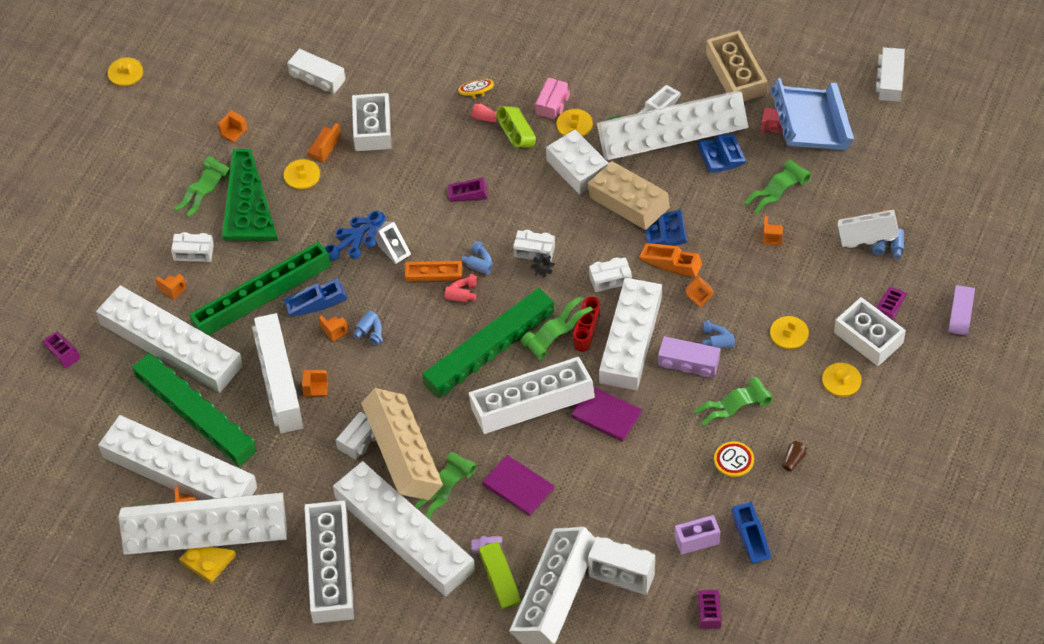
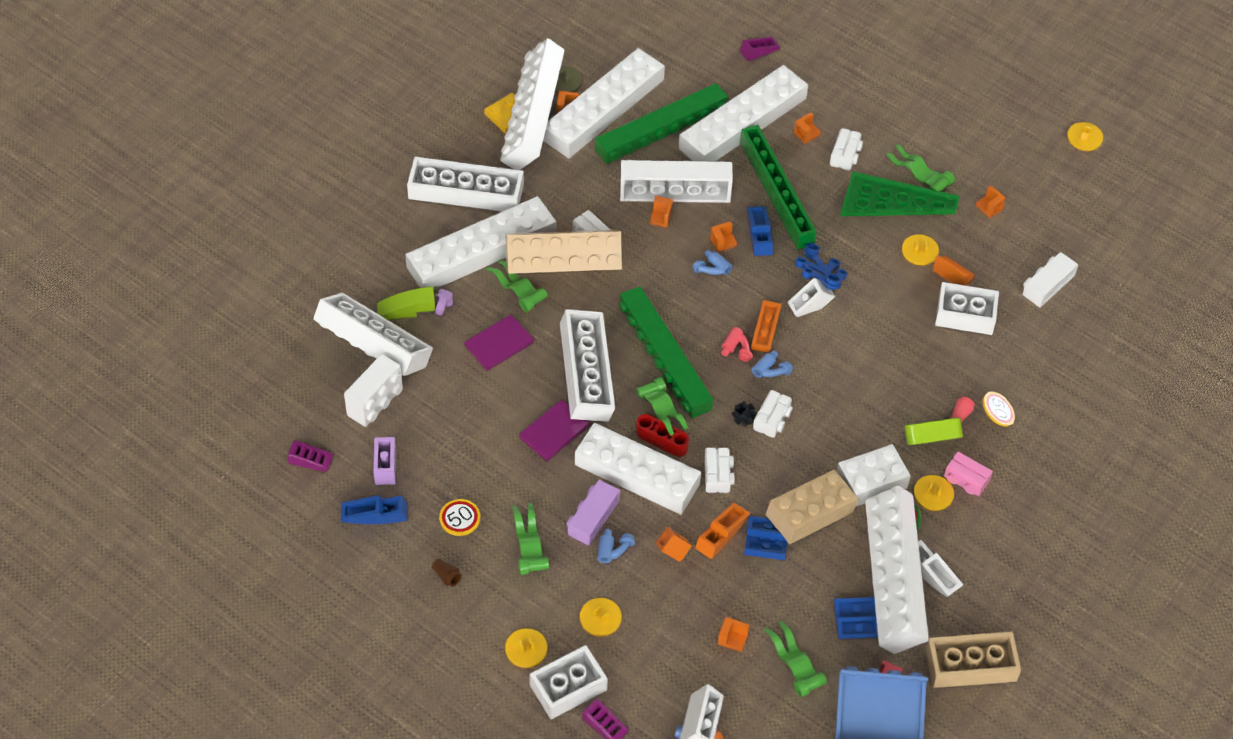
camera: 100 degrees right, 0 degrees up
(474, 184) = (861, 378): magenta slope -> none

